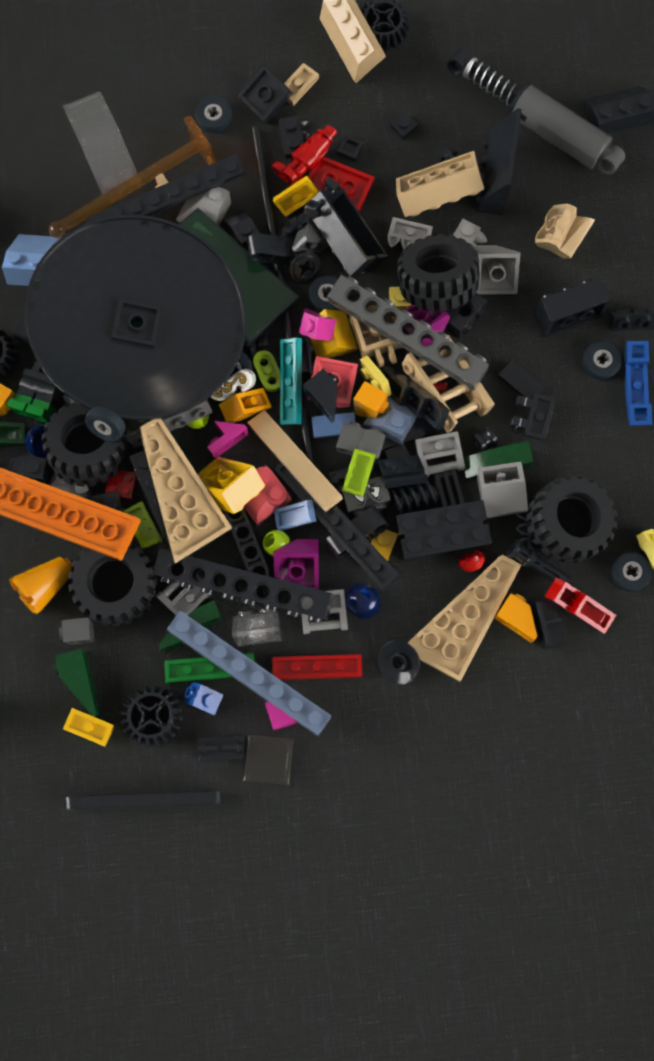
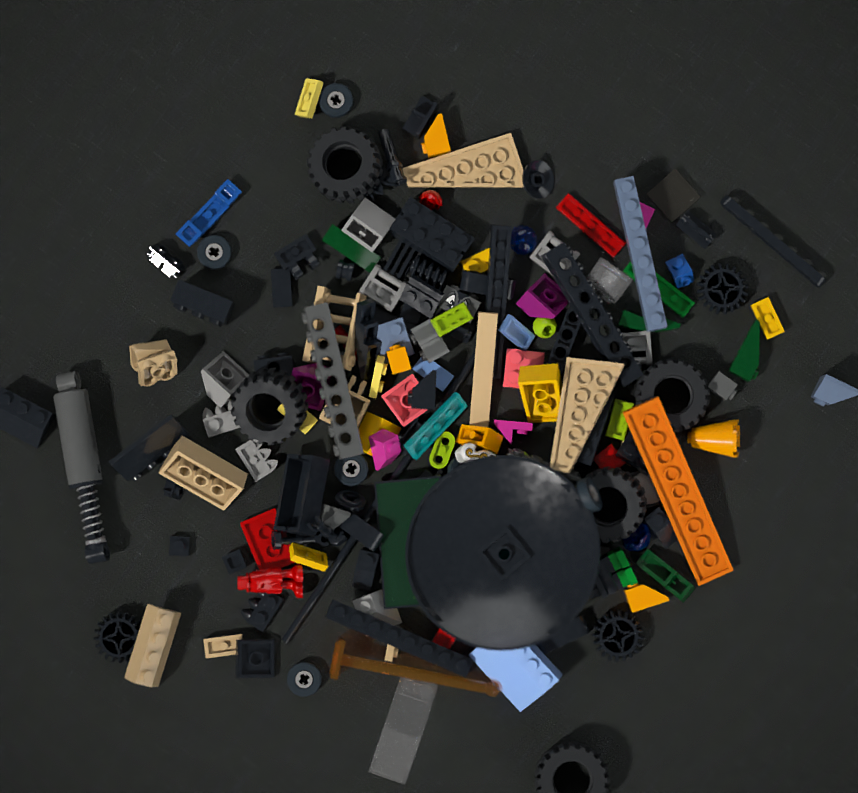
camera: 140 degrees left, 10 degrees up
(580, 605) = (391, 109): red slope -> none

